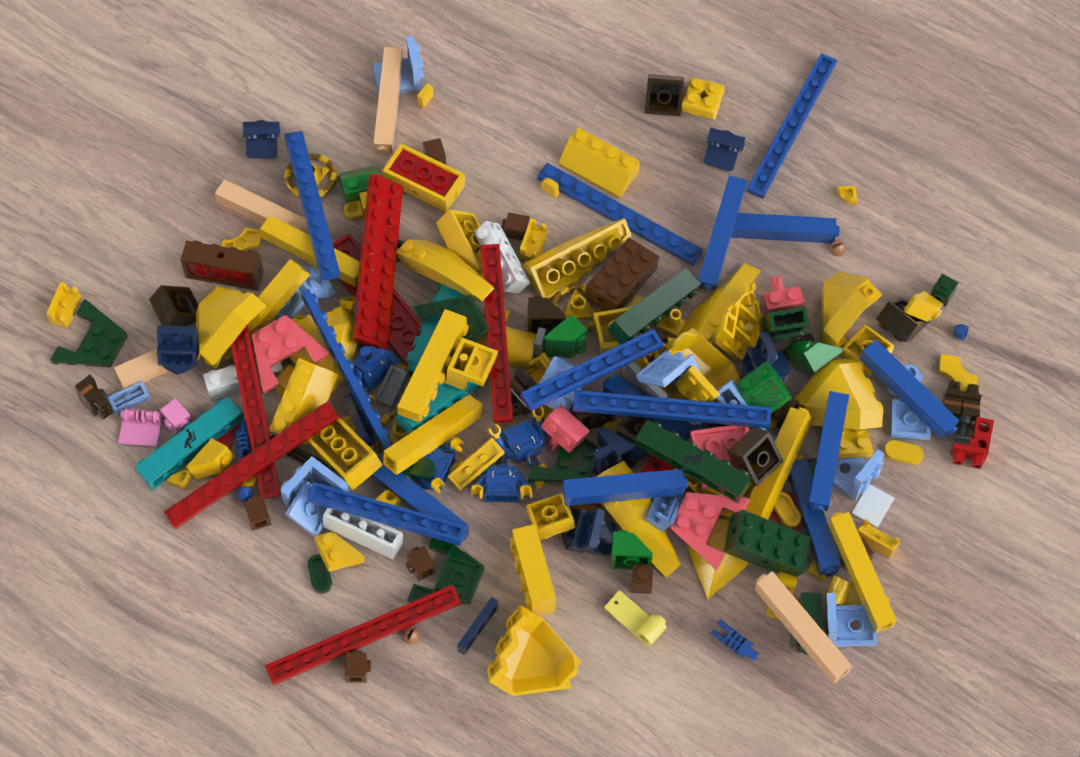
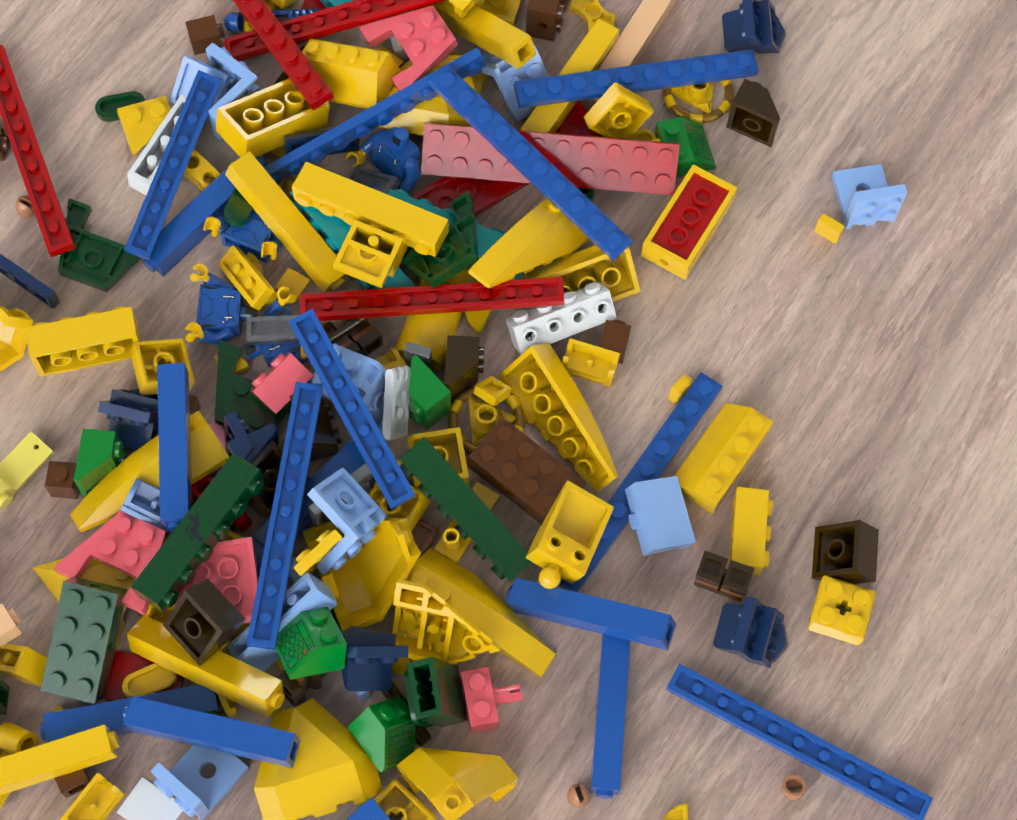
camera: 90 degrees right, 5 degrees up
(336, 134) = (754, 113): none -> dark brown slope
(340, 217) = (618, 113): none -> yellow brick
(388, 100) = (811, 177): light nougat brick -> none
(390, 264) = (530, 162): none -> blue plate
(420, 563) = (118, 214): reddish brown brick -> none
(435, 150) = (732, 239): reddish brown brick -> none
(475, 438) = (295, 281): none -> yellow tile
(520, 439) = (270, 330): none -> flat silver tile
(561, 297) = (492, 390): none -> yellow plate
(570, 355) = (396, 403): none -> white hinge
(646, 197) = (659, 515): none -> light blue container
(653, 147) = (750, 528): none -> yellow brick
(671, 244) = (569, 536): none -> yellow slope
(689, 158) = (726, 582): none -> dark brown hips
(817, 127) = (793, 782): none -> nougat hinge
(855, 444) = (238, 782): yellow plate -> none

